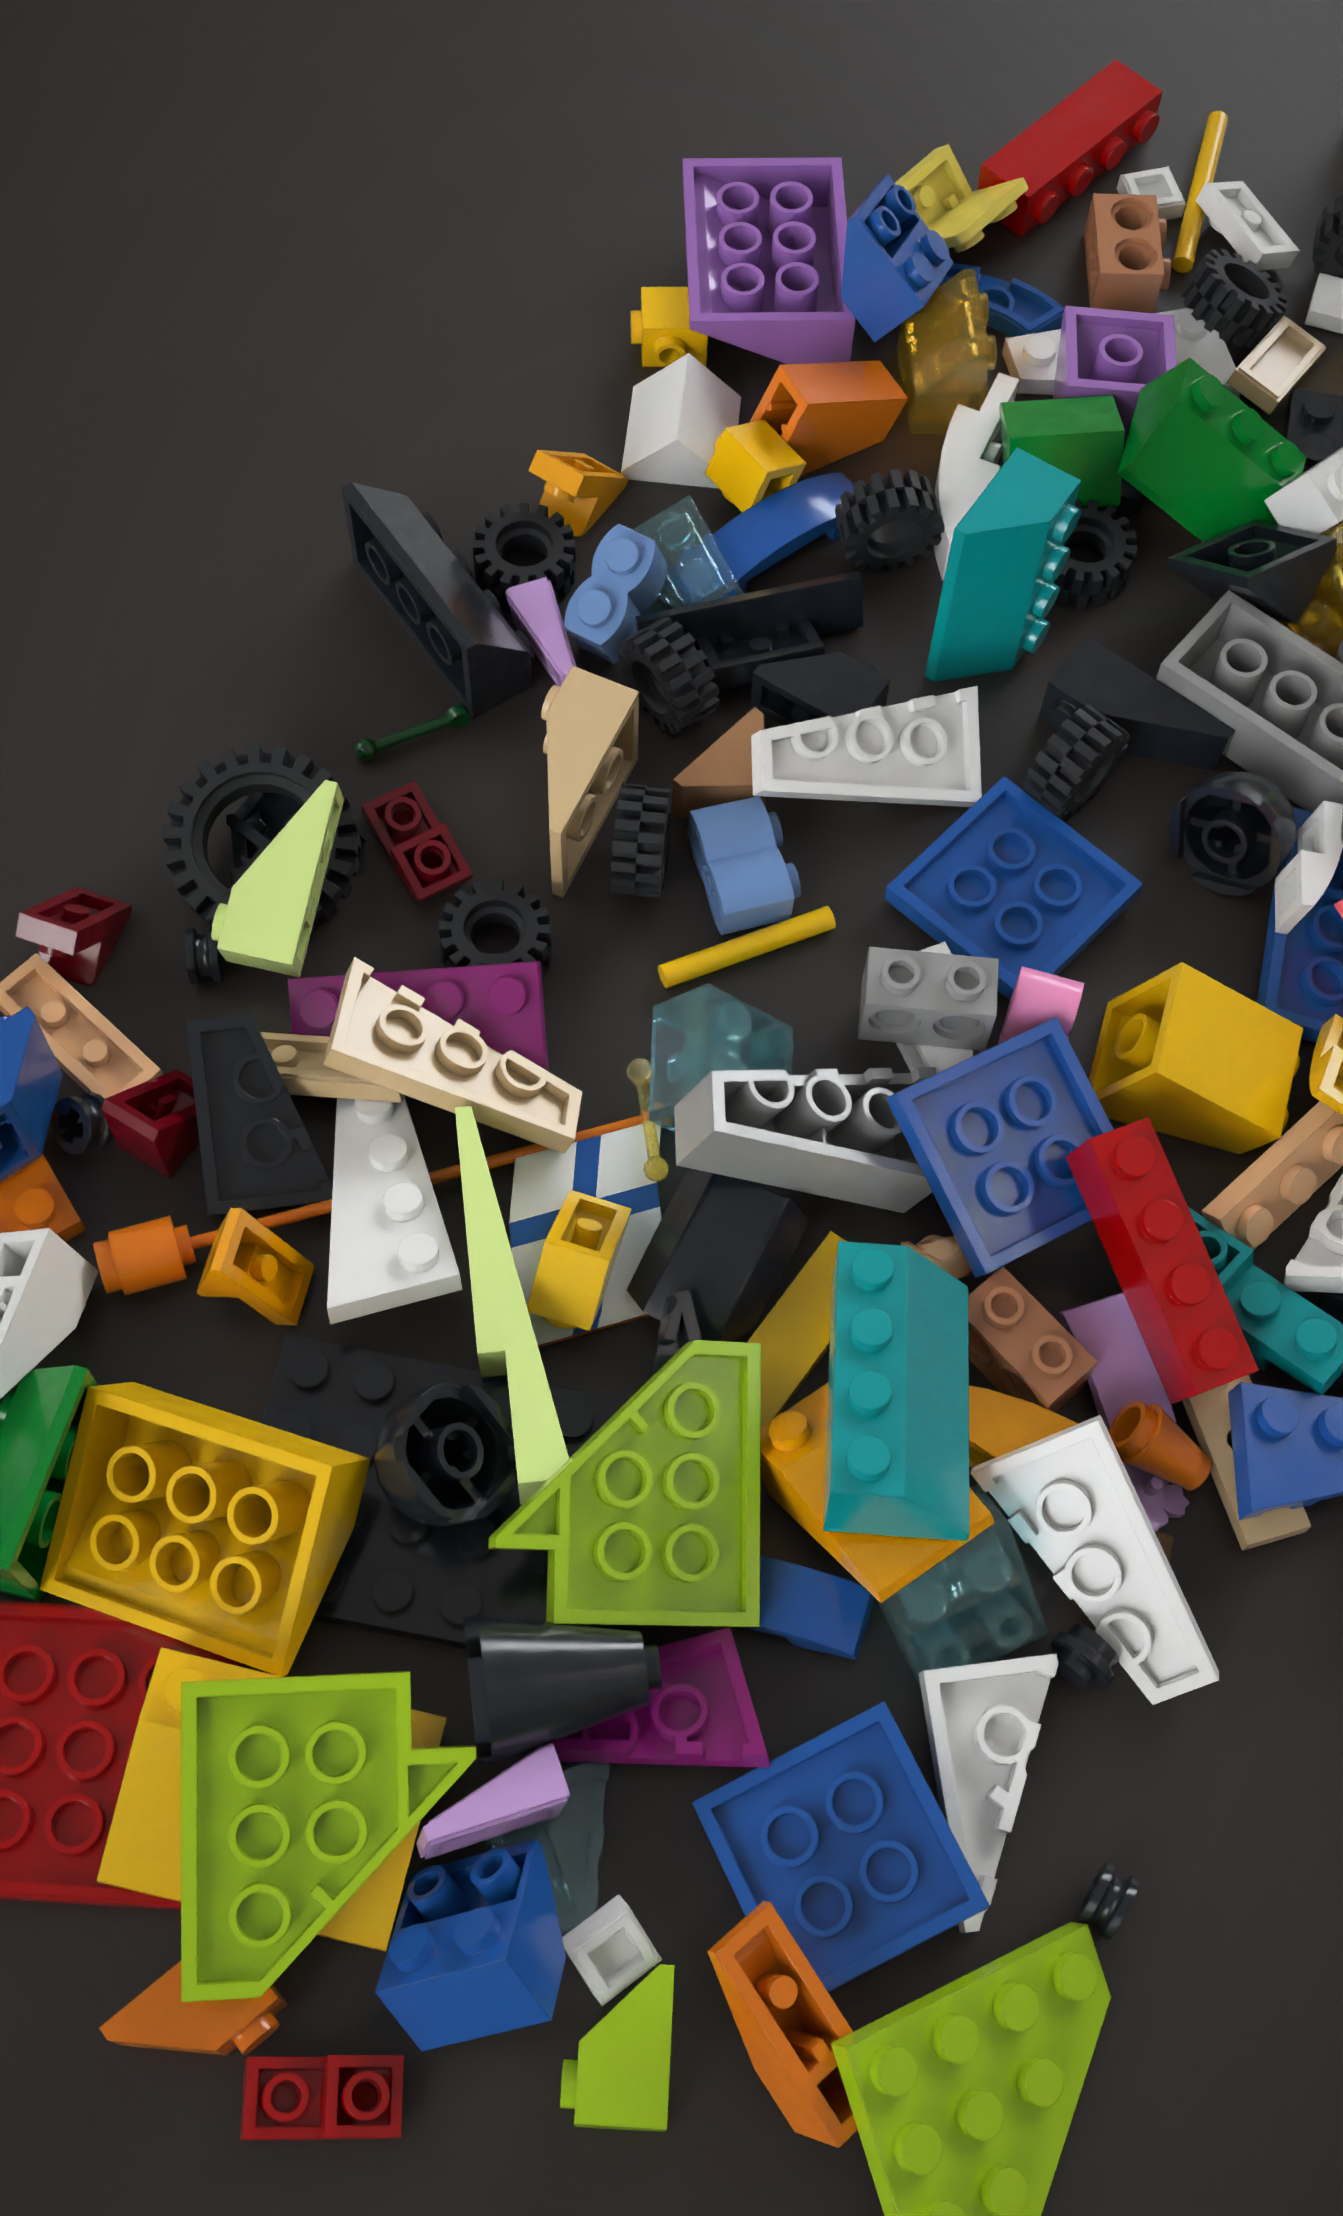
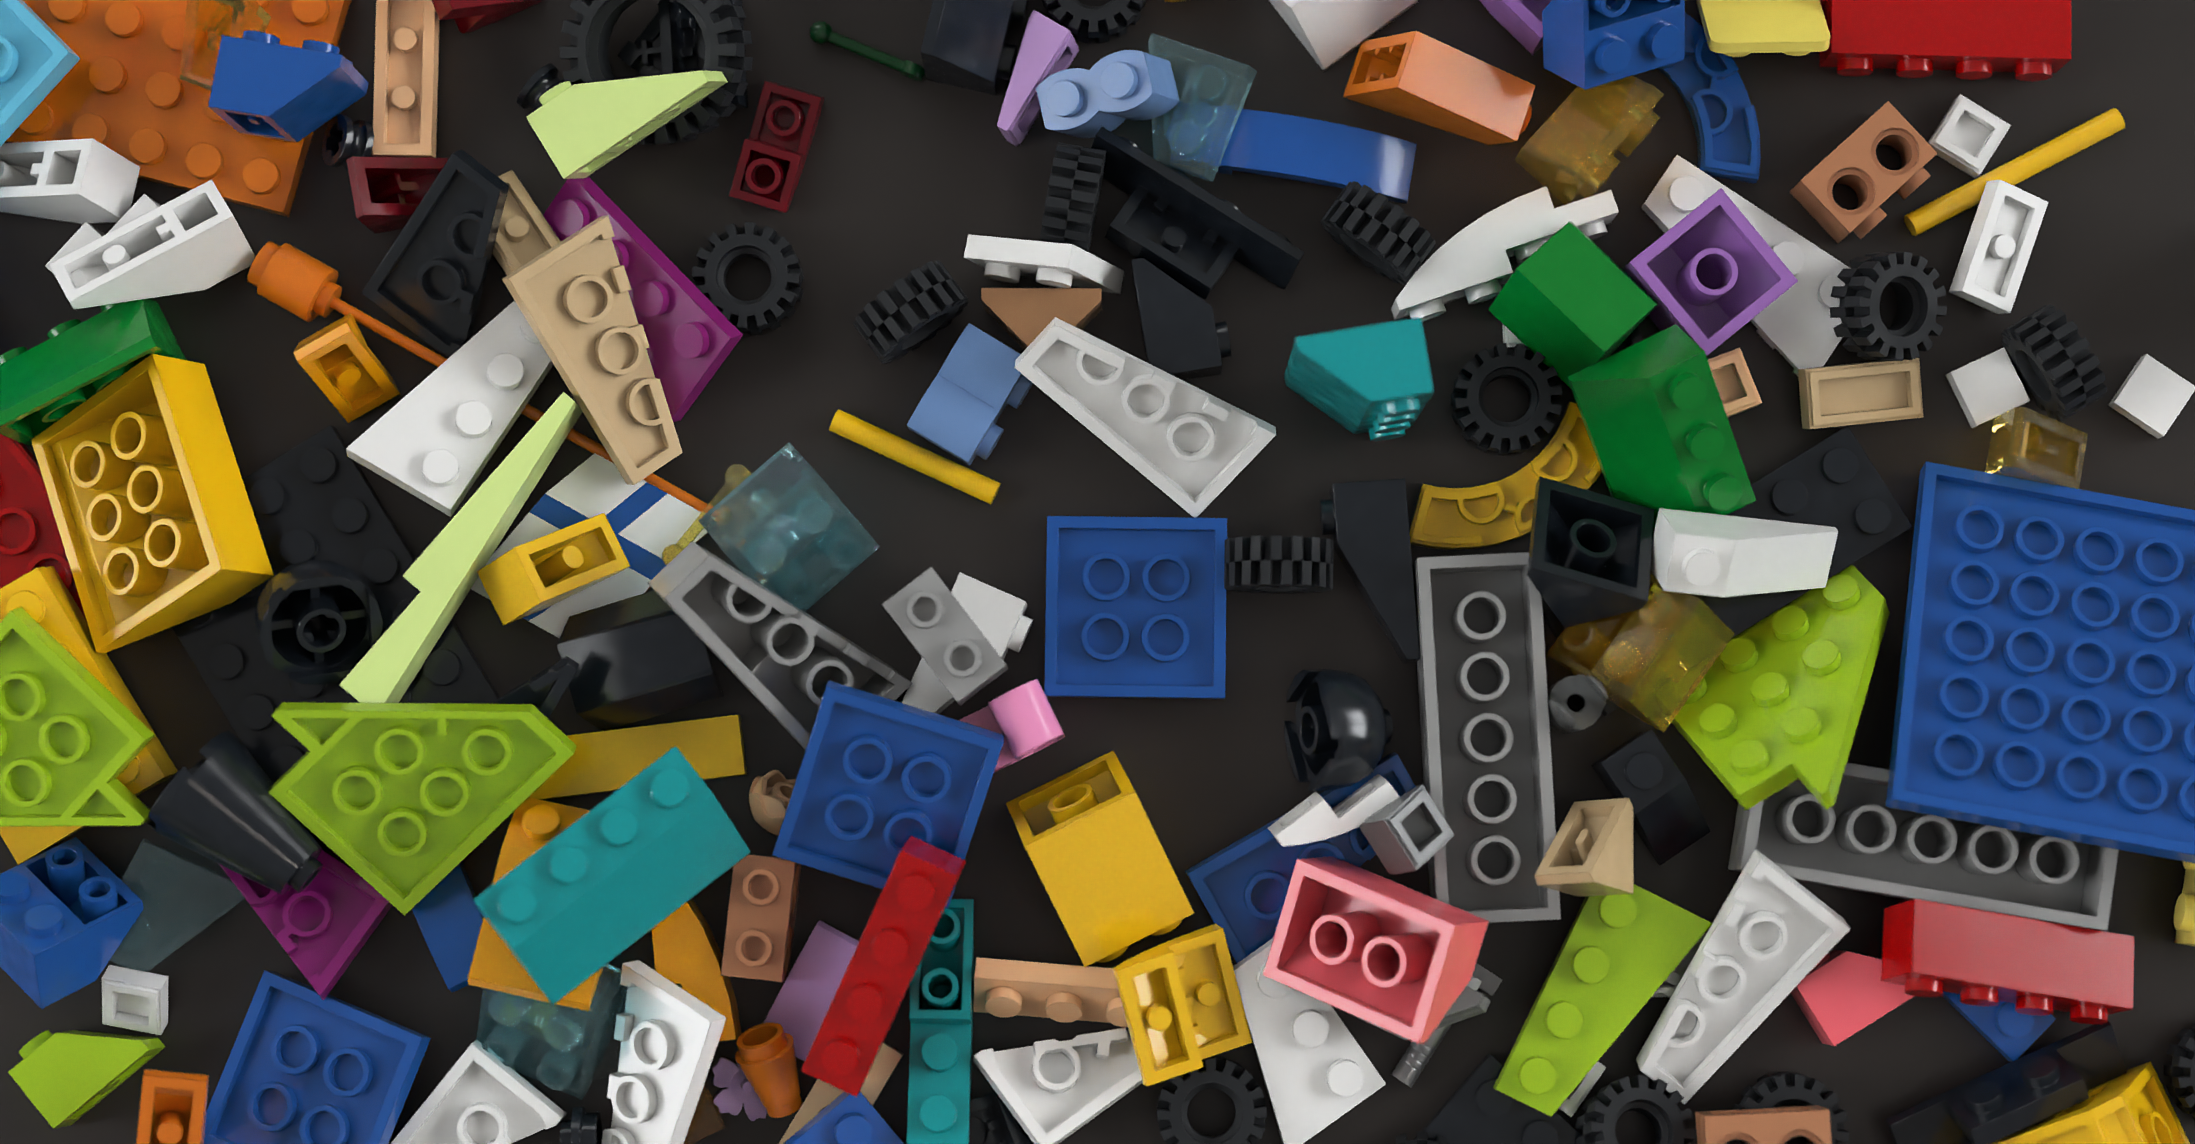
camera: 55 degrees right, 20 degrees up
(510, 1801) = (152, 863): lavender slope -> none
(589, 756) = (921, 215): tan slope -> none
(685, 734) = (1047, 262): none -> white wing
(752, 463) = (1334, 81): yellow brick -> none
(1163, 598) = (1504, 508): none -> yellow tile

